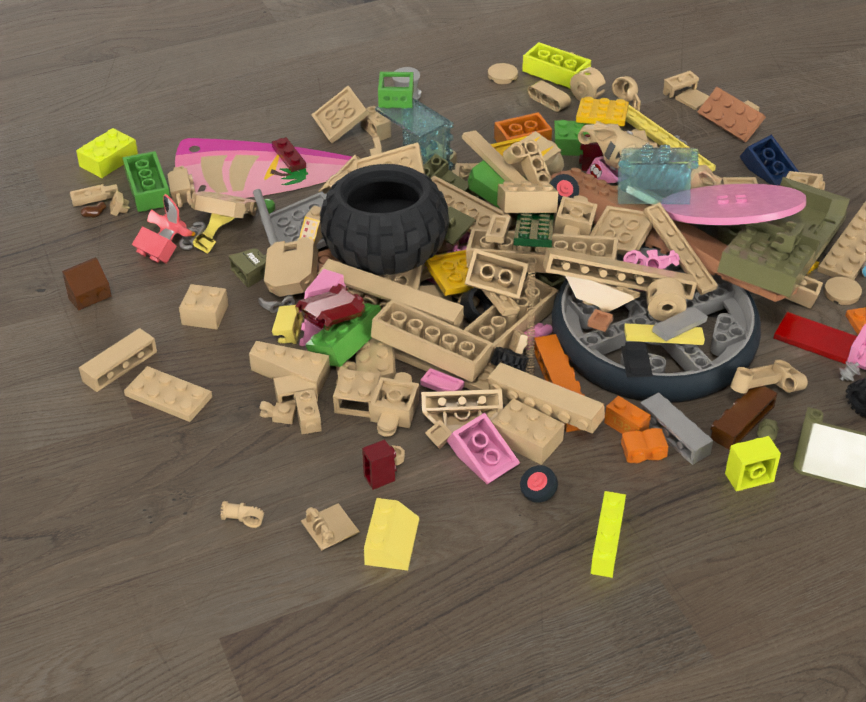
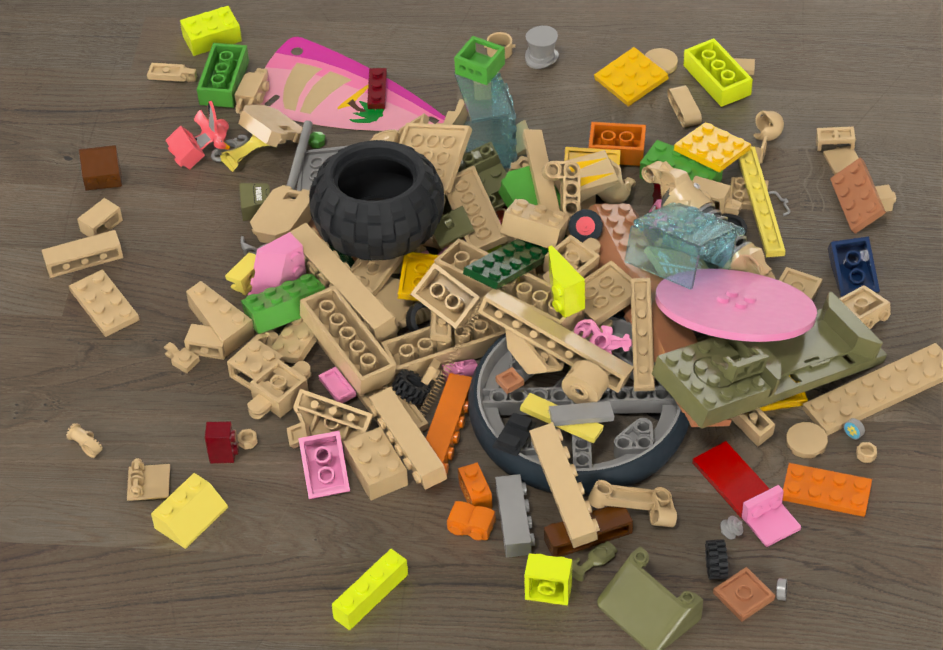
camera: 30 degrees right, 5 degrees up
(93, 211) = (161, 91): reddish brown arm -> none
(113, 326) = (100, 218): none -> tan brick
(118, 204) = (186, 91): tan tile -> none
(203, 306) = (186, 227): tan brick -> none
(307, 411) = (203, 367): tan brick -> none
(331, 307) = (273, 274): dark red brick -> none
(340, 114) = (441, 60): tan plate -> none
(368, 95) = (500, 38): none -> tan piece
(490, 88) = (631, 76): none -> yellow plate
(498, 228) = (476, 248): tan piece -> none
(539, 483) = (347, 517): black wheel -> none
(587, 85) = (727, 106): tan piece -> none
(599, 225) = (566, 285): none -> neon yellow slope
(712, 382) = (563, 485): none -> tan brick

